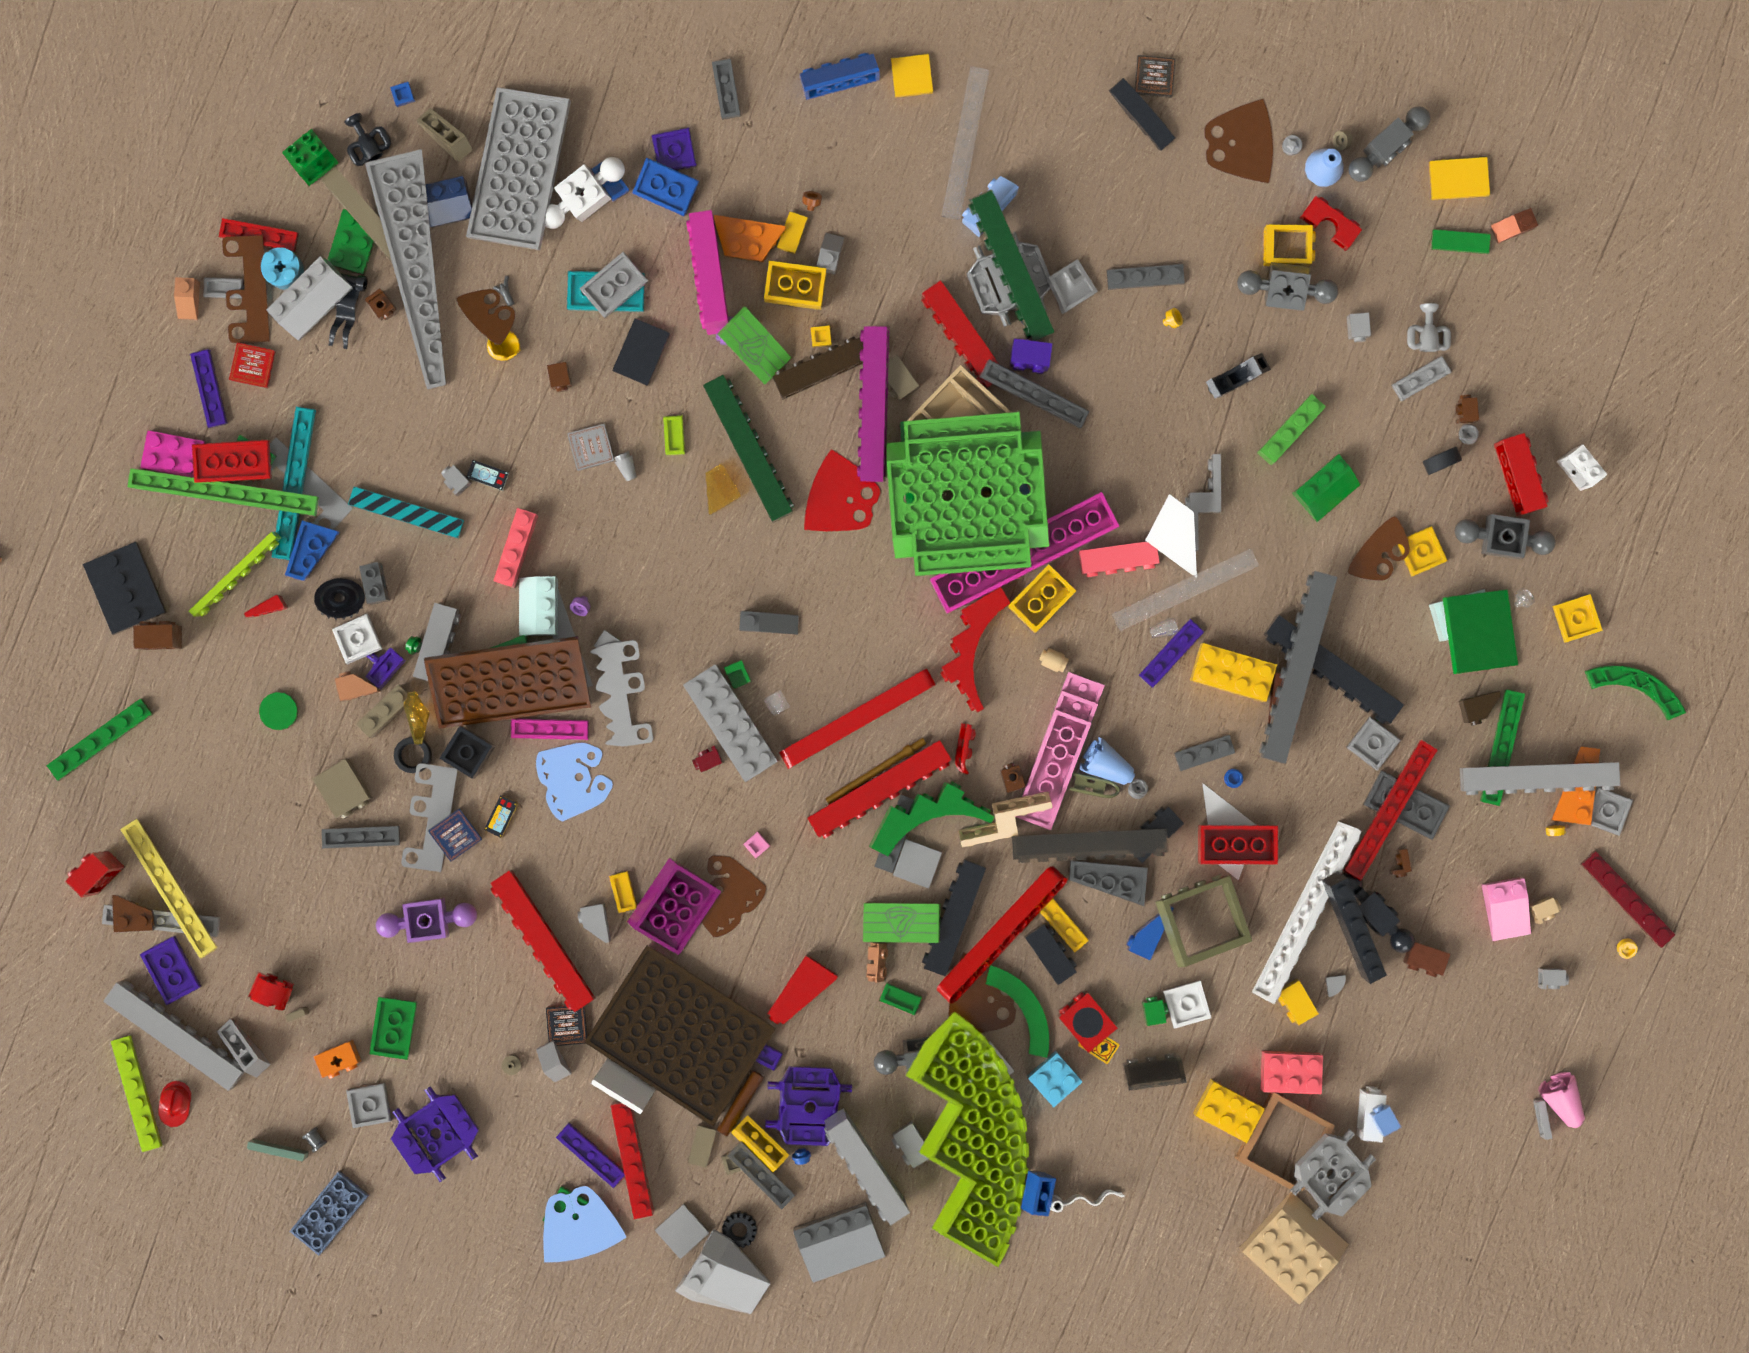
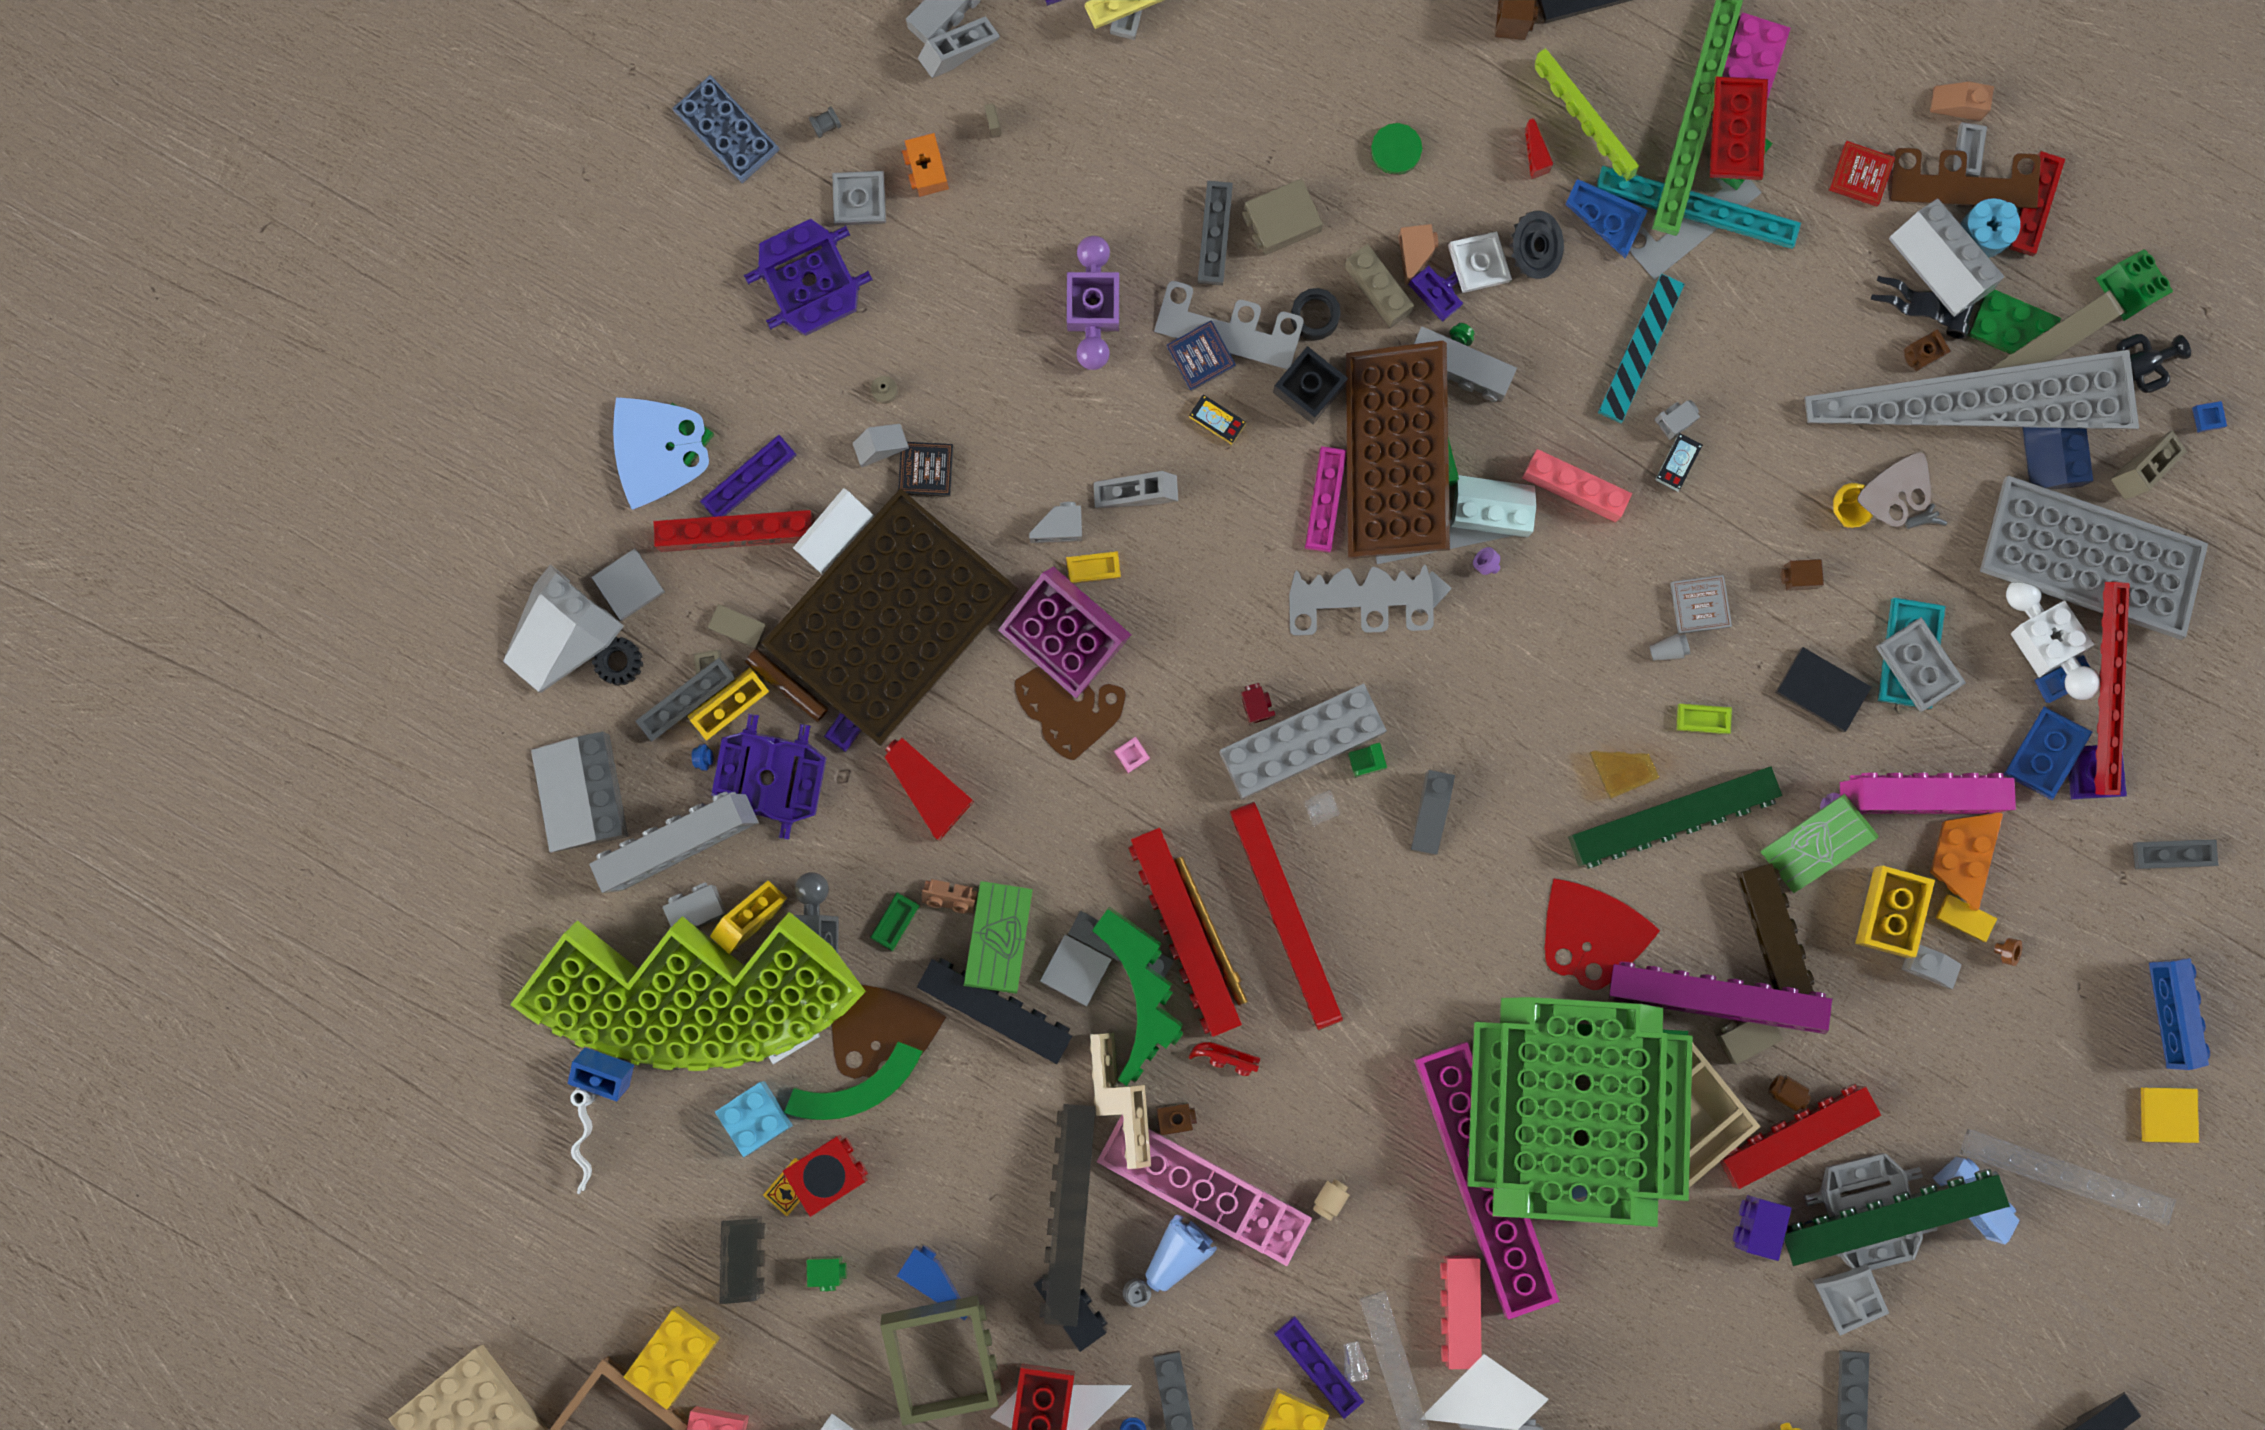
camera: 100 degrees right, 5 degrees down
(208, 388) = (1836, 114): dark purple tile -> none
(270, 991) = (1028, 89): red brick -> none
(277, 1150) = (818, 72): sand green tile -> none
(374, 583) = (1551, 293): dark grey brick -> none
(393, 1028) = (956, 242): green plate -> none
(417, 716) = (1367, 324): clear yellow wing -> none
(542, 940) = (1043, 451): red brick -> none
(561, 780) = (1249, 506): light blue piece -> none
(562, 868) = (1136, 490): none -> light grey slope
(613, 148) = (2112, 688): none -> red plate
(821, 336) = (1819, 937): yellow plate -> none
(912, 1104) = (748, 917): none -> yellow brick
(933, 345) = (1789, 1092): none -> reddish brown brick
(961, 669) = (1403, 1101): red arch -> none
(1002, 934) = (962, 1074): red beam -> none
(1034, 394) = (1706, 1225): dark grey tile -> none
(1041, 598) = (1419, 1194): yellow brick -> none
(1051, 953) = (926, 1138): black brick -> none
(1064, 925) = (964, 1160): yellow tile -> none
(1098, 787) = (1146, 1237): olive piece -> none
(1117, 880) = (1014, 1244): dark grey wing -> none
(1187, 1004) = (828, 1319): white plate -> none

